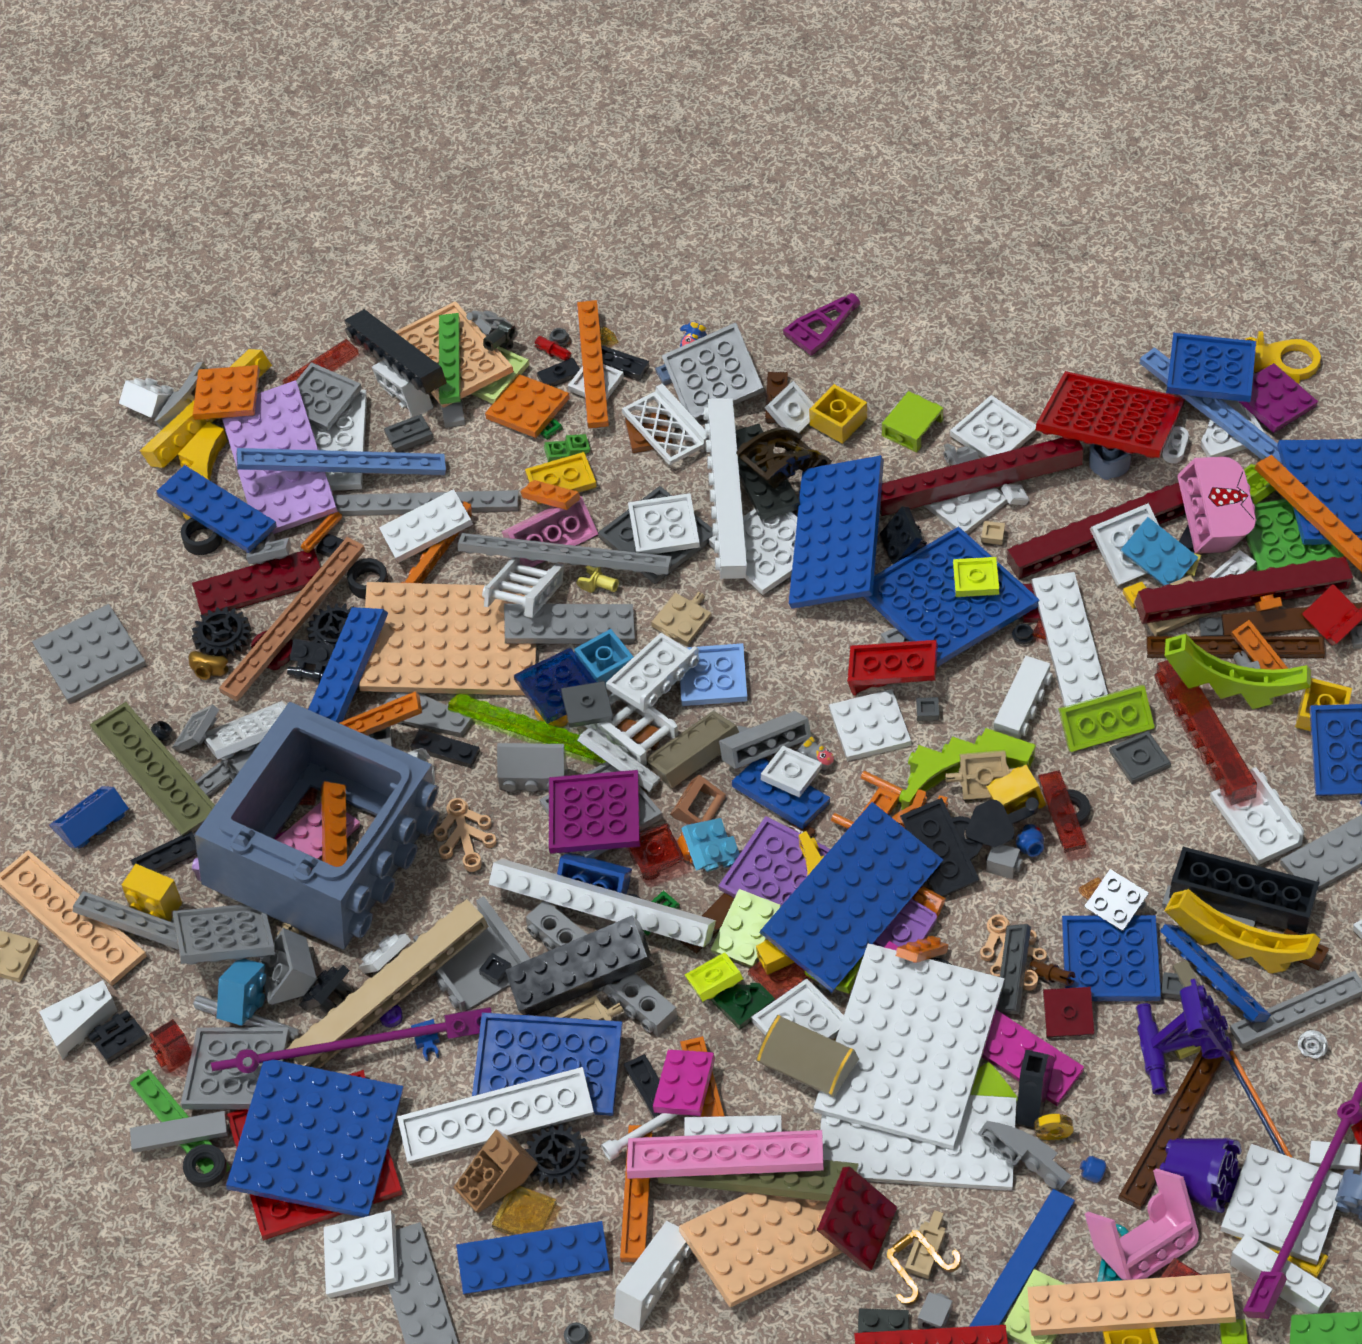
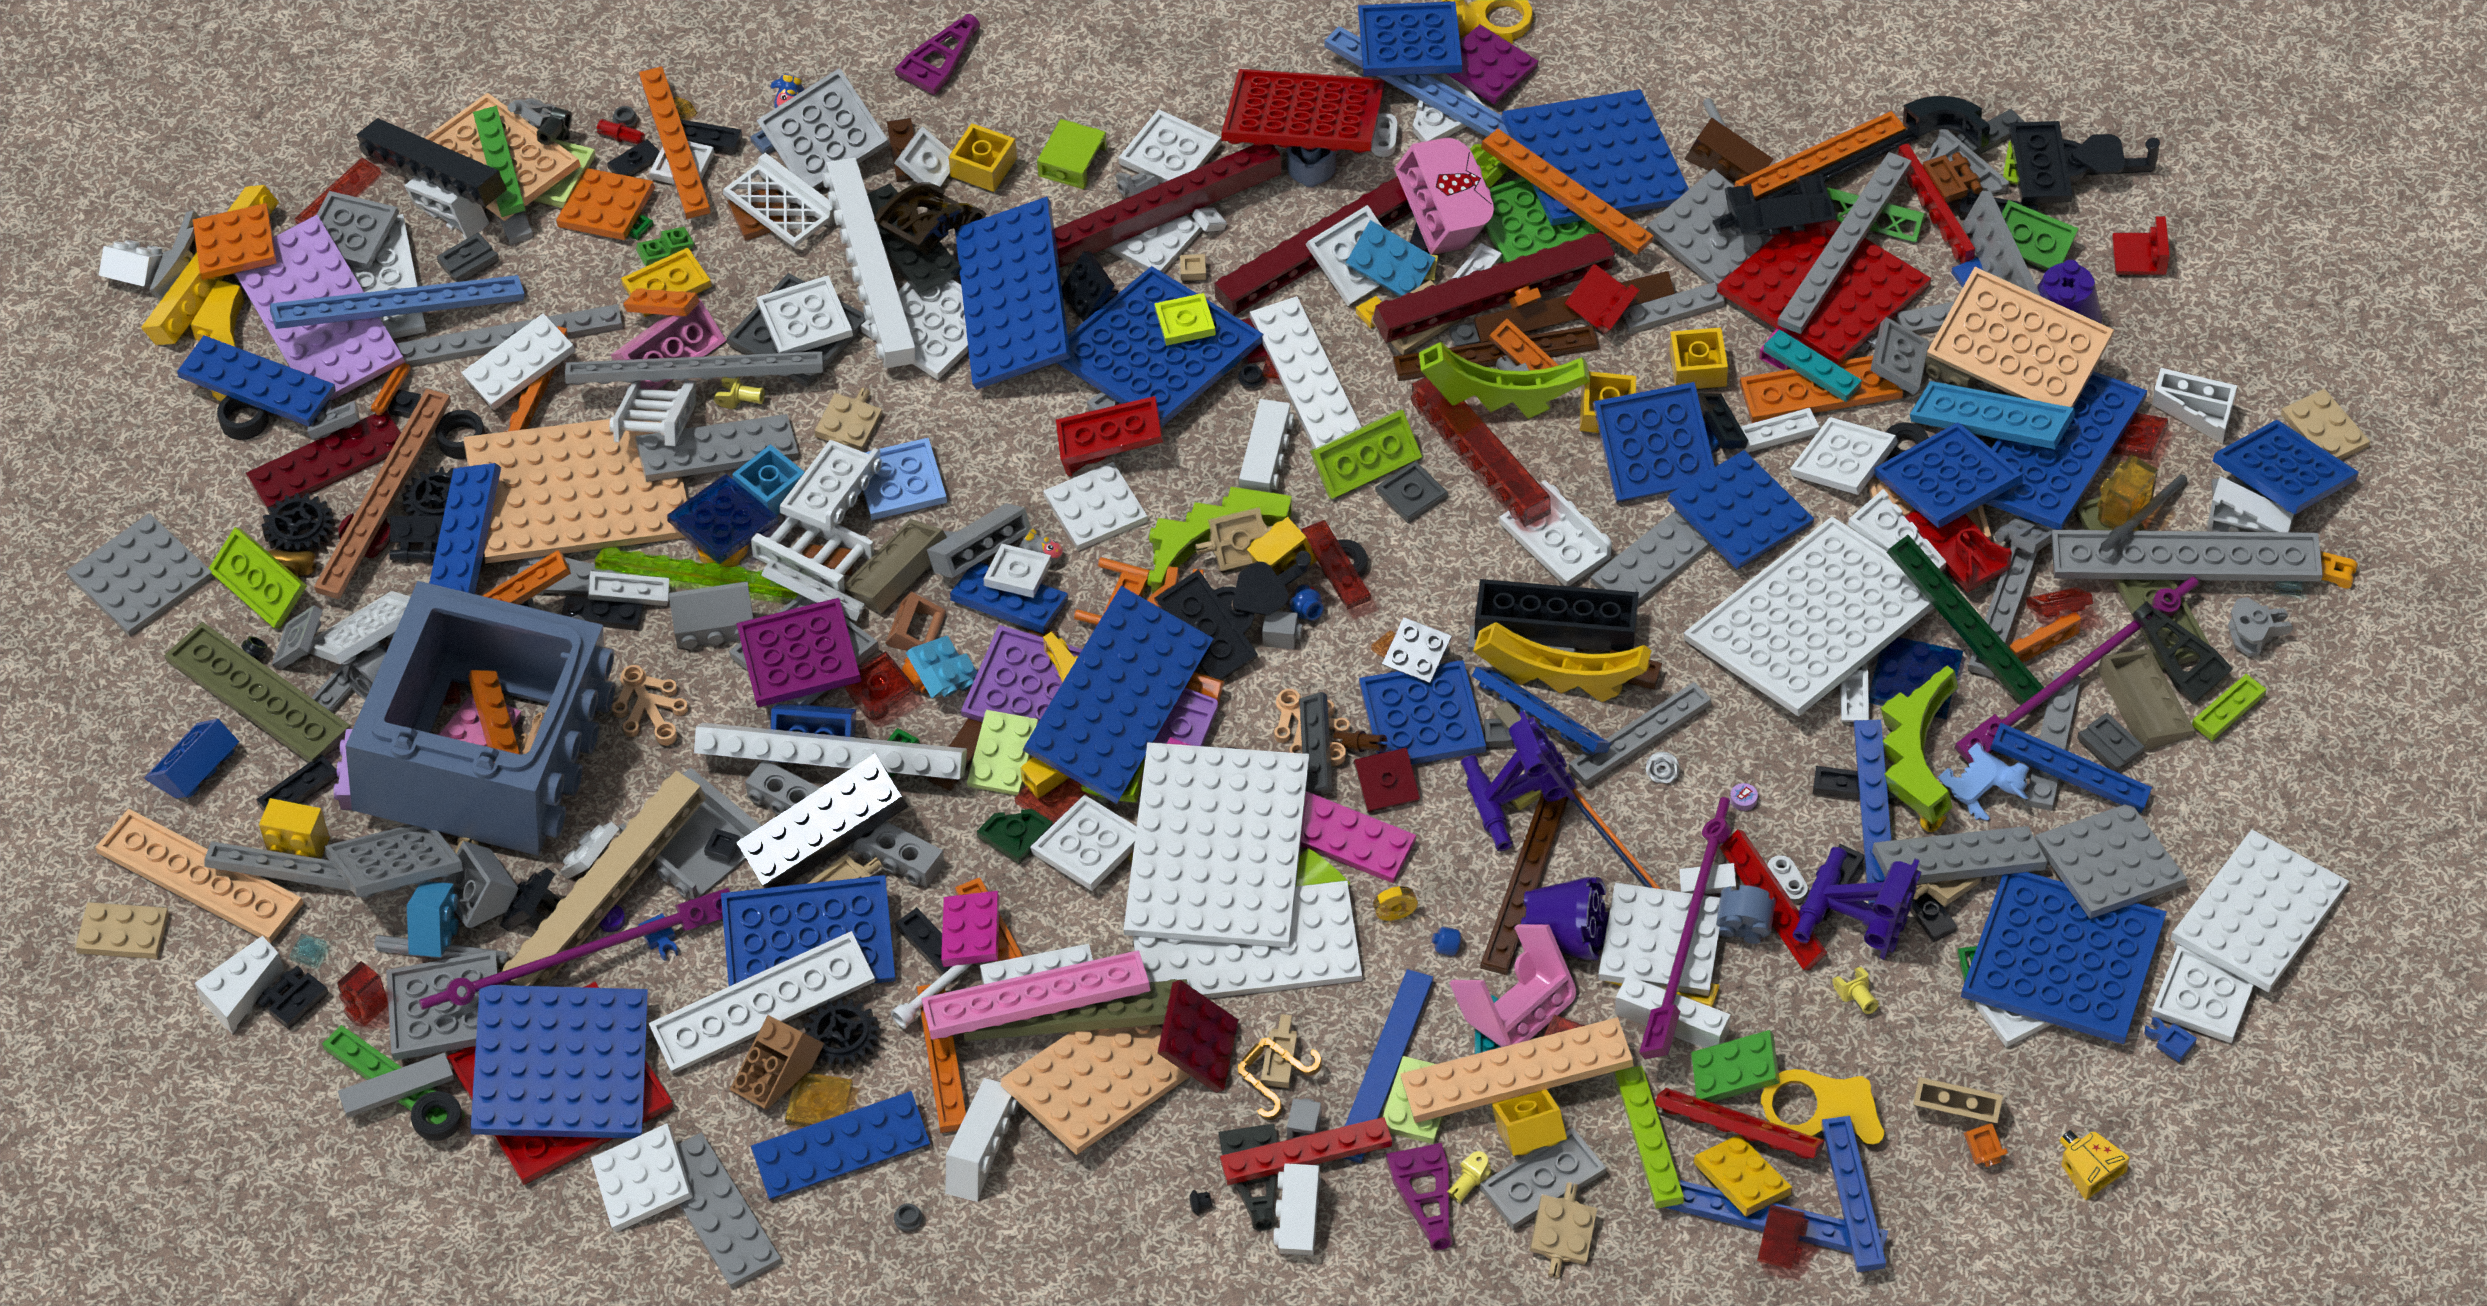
camera: 15 degrees left, 0 degrees up
(140, 998) = (308, 950): none -> clear light blue plate
(177, 672) = (257, 577): none -> lime plate
(469, 731) = (628, 588): none -> white plate
(586, 704) = (762, 534): dark grey plate -> none
(714, 977) = (978, 810): neon yellow plate -> none
(806, 1056) = (1104, 874): dark tan slope -> none
(922, 949) = (1210, 739): orange plate -> none
(927, 709) = (1158, 477): dark grey plate -> none
(1019, 1145) = (1362, 928): light grey slope -> none
(1033, 1086) = (1364, 864): black slope -> none

